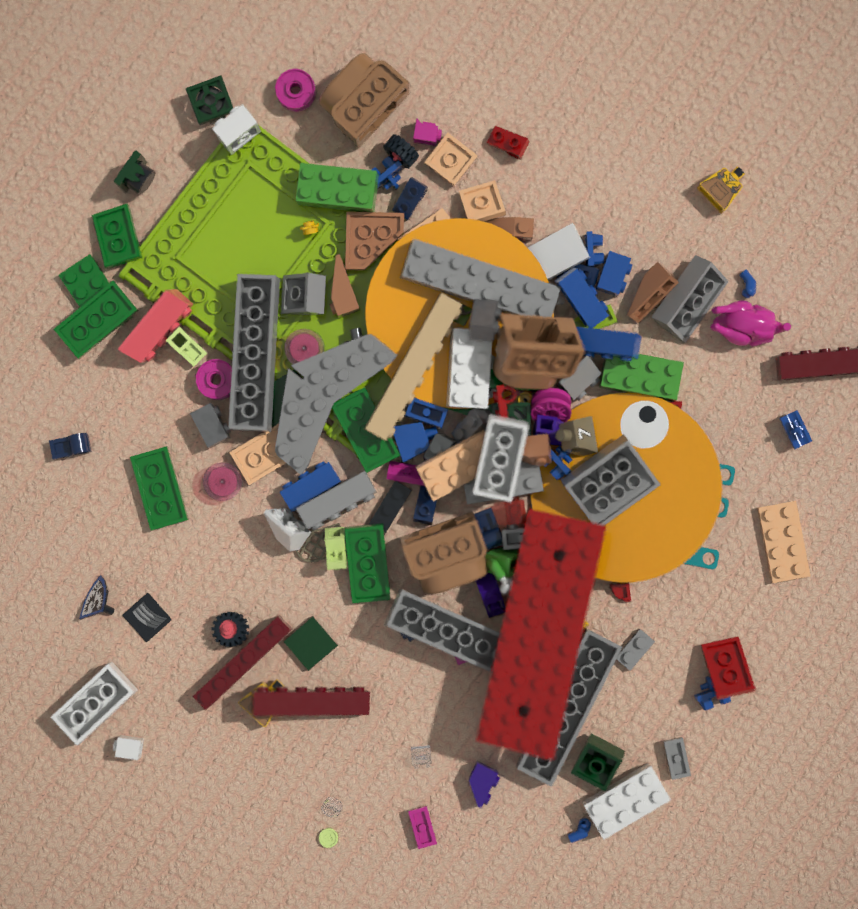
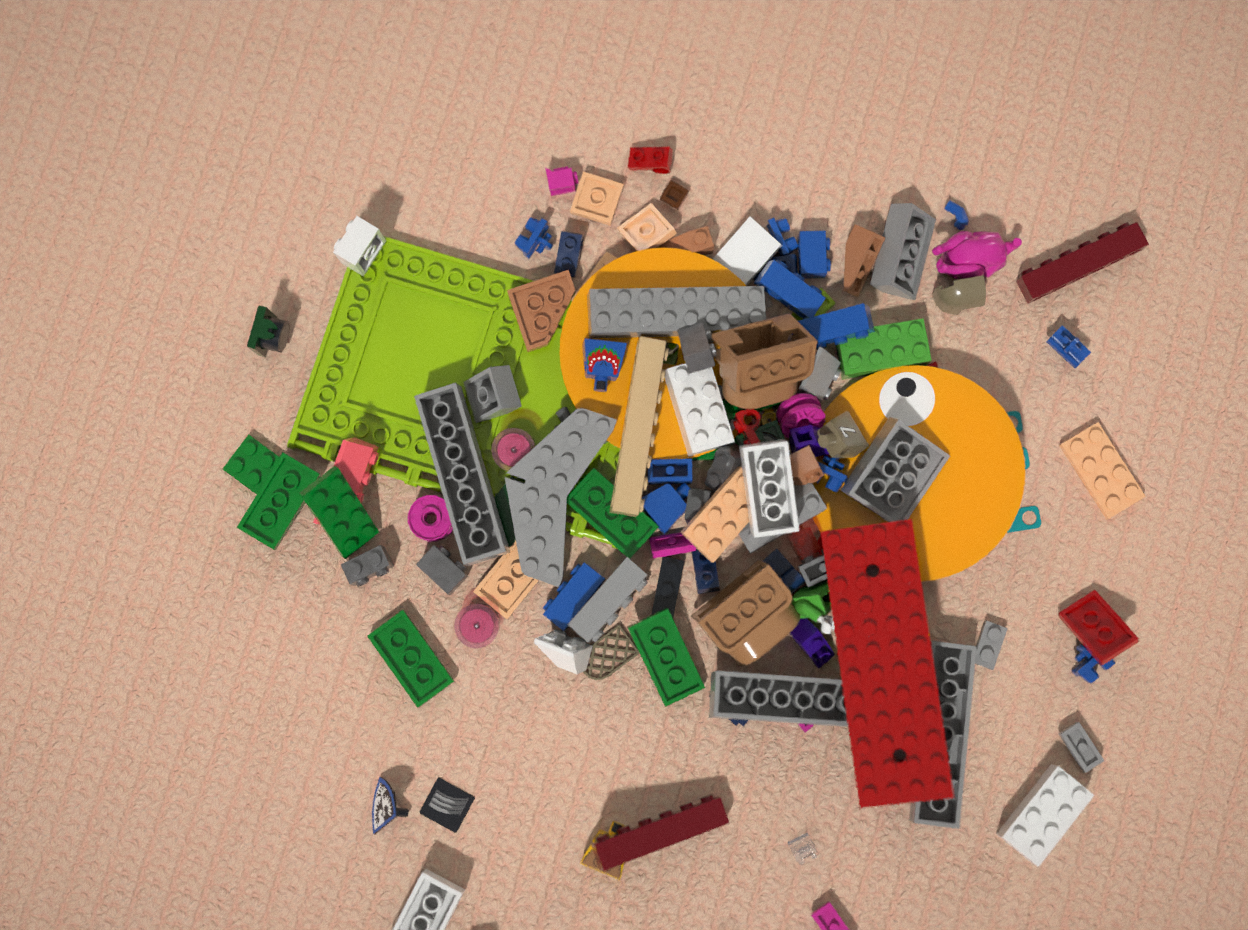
camera: 15 degrees left, 5 degrees down
(70, 446) = (298, 647): dark blue plate -> none
(116, 236) = (271, 405): green tile -> none
(142, 348) = (339, 512): none -> green plate
(150, 399) = (367, 565): none -> flat silver brick
(186, 346) = (386, 494): yellowish green brick -> none
(211, 102) = (321, 228): dark green piece -> none
(230, 629) = (542, 784): black wheel -> none
(242, 662) = (569, 816): dark red brick -> none
(290, 79) = (401, 174): dark pink wheel -> none
(309, 227) = (473, 321): yellow plate -> none
(310, 643) = (636, 767): dark green tile -> none
(335, 548) = (626, 653): yellowish green brick -> none
(337, 188) = (487, 268): bright green brick -> none
(342, 293) = (536, 381): nougat slope -> none
(363, 97) = (482, 164): medium nougat brick -> none
(401, 151) = (541, 206): black wheel -> none
(403, 302) = (602, 361): none -> blue torso
(481, 781) = (879, 850): dark purple slope -> none
(517, 180) = (674, 195): none -> reddish brown tile
(582, 830) = (1010, 866): blue arm -> none
(598, 762) = (998, 783): dark green slope -> none
(621, 591) = (950, 587): red tile -> none
(722, 187) = (891, 125): torso -> none
(723, 354) = (961, 295): none -> dark tan brick

